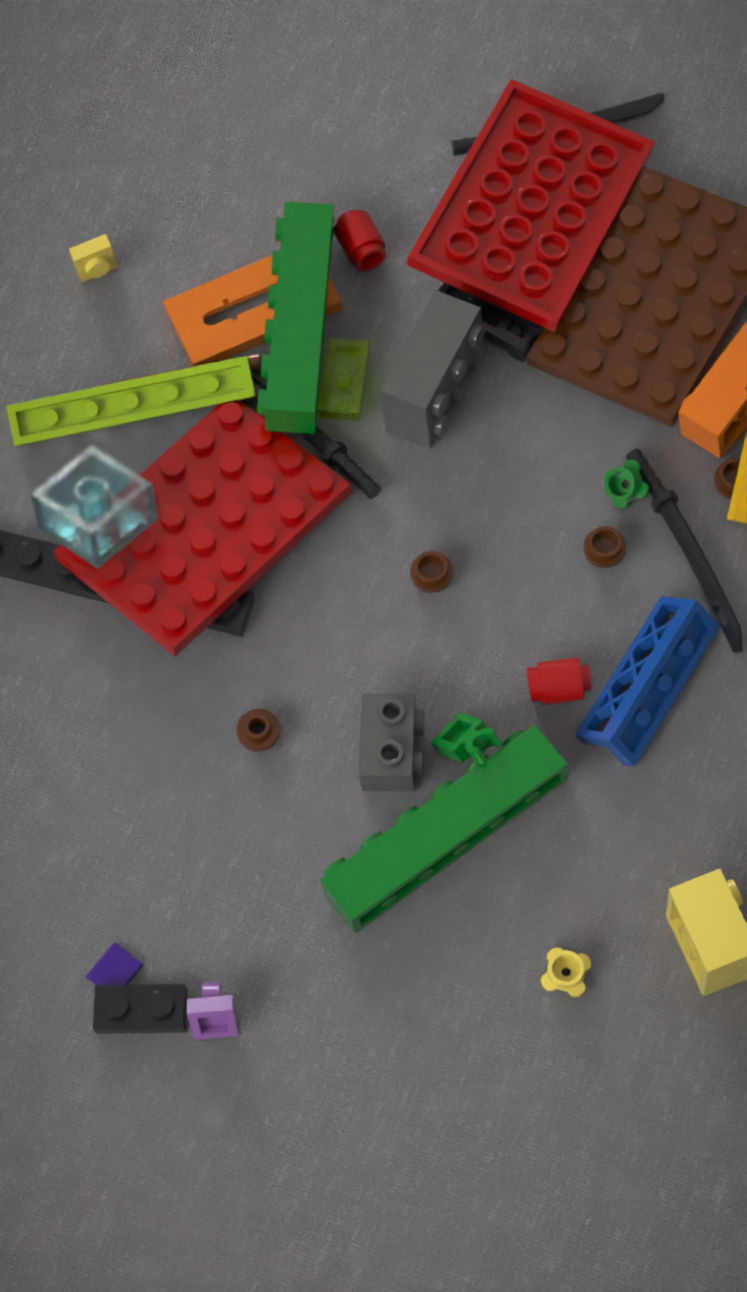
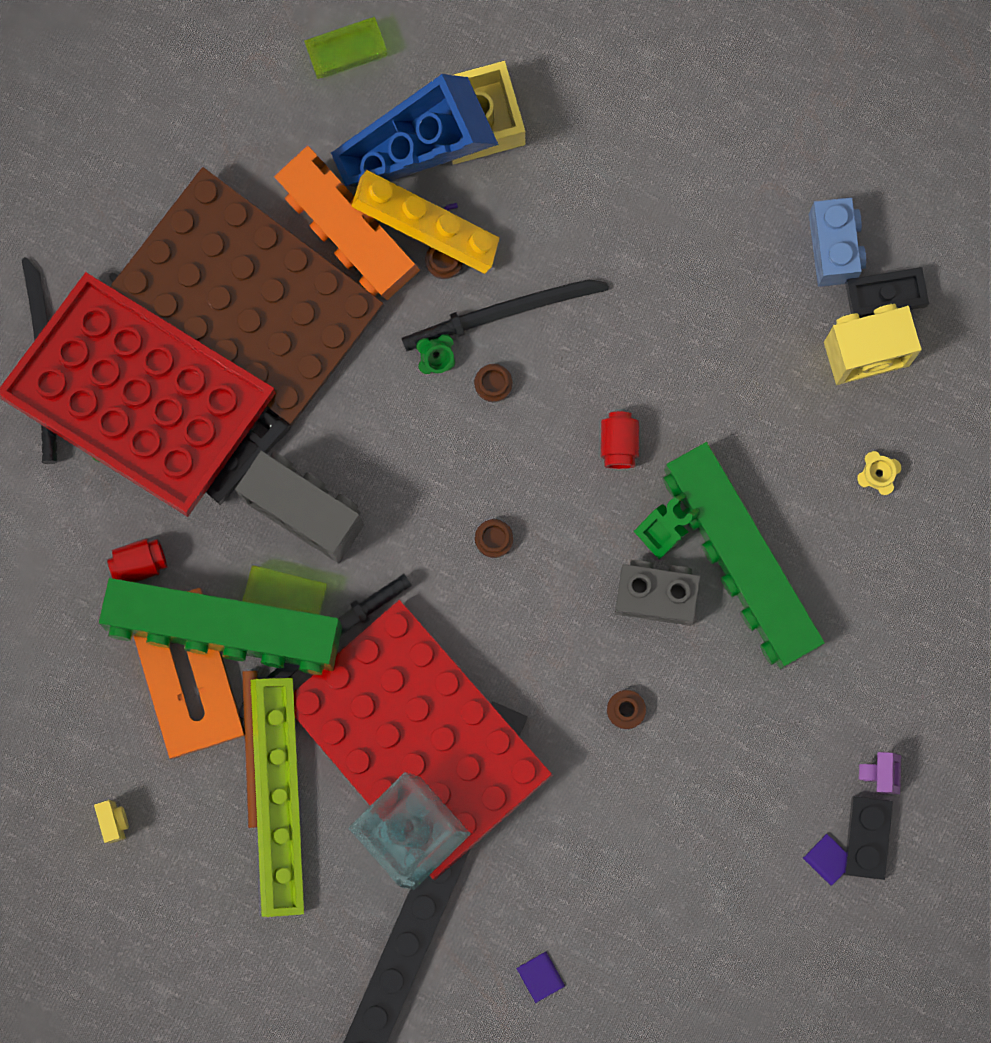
camera: 90 degrees left, 15 degrees up
(656, 678) = (633, 356): blue fence -> none

